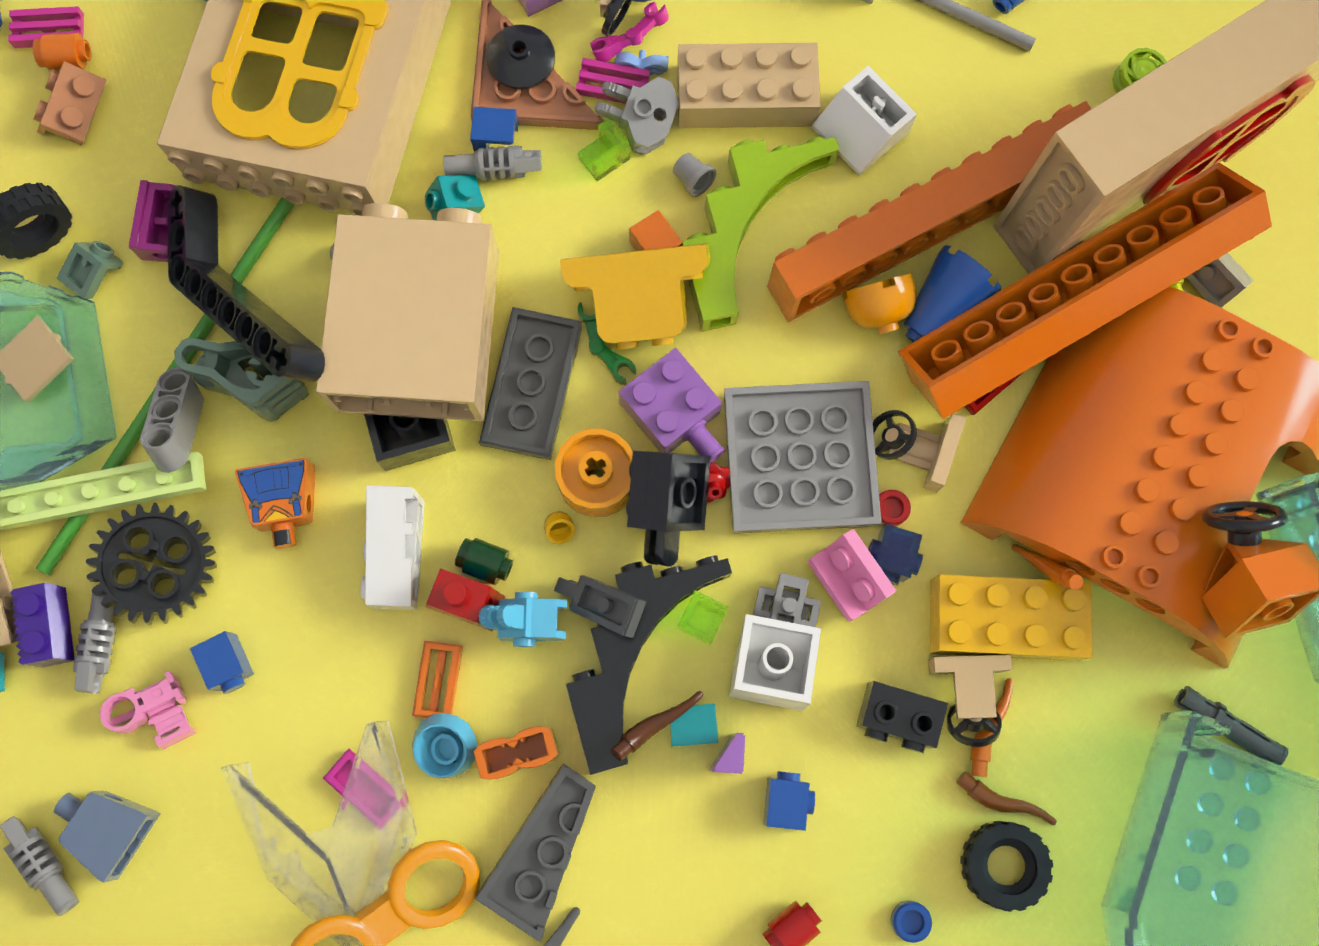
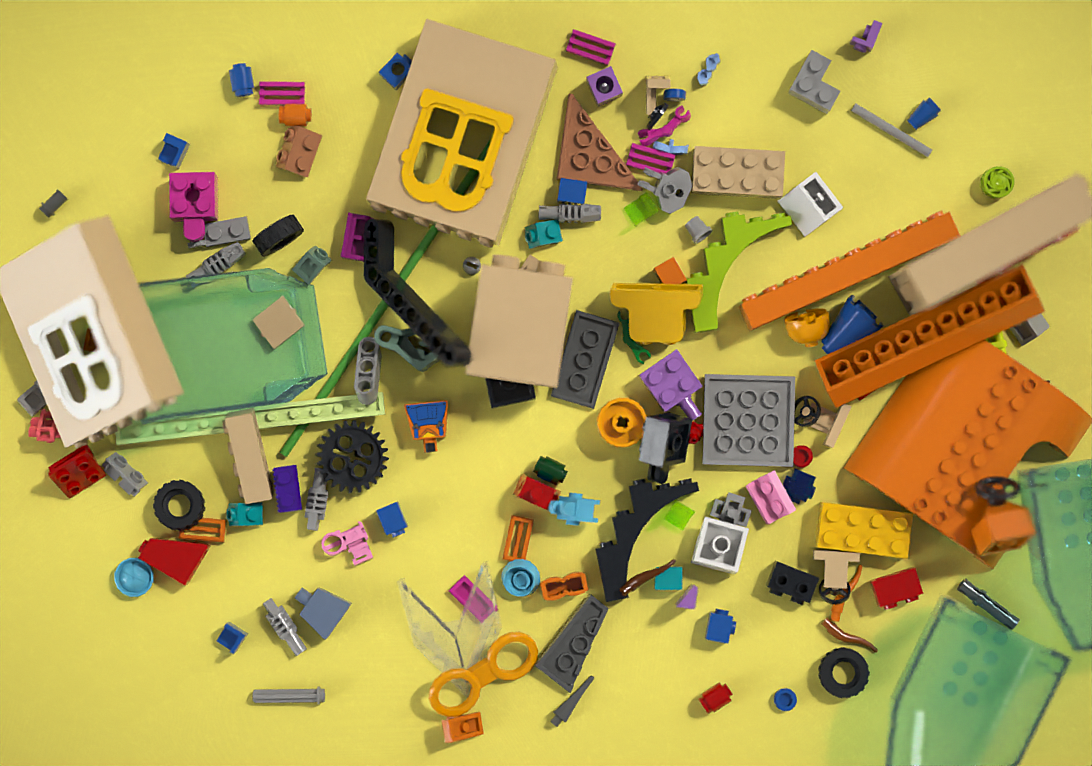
camera: 10 degrees right, 10 degrees up
(392, 547) = (495, 460): white wedge -> none
(521, 69) = (591, 151): black dish -> none
(559, 527) = (596, 453): yellow hinge -> none
(603, 604) = (620, 503): dark grey hinge -> none
(1055, 571) = (890, 504): orange animal -> none
(1078, 710) = (896, 587): none -> red brick

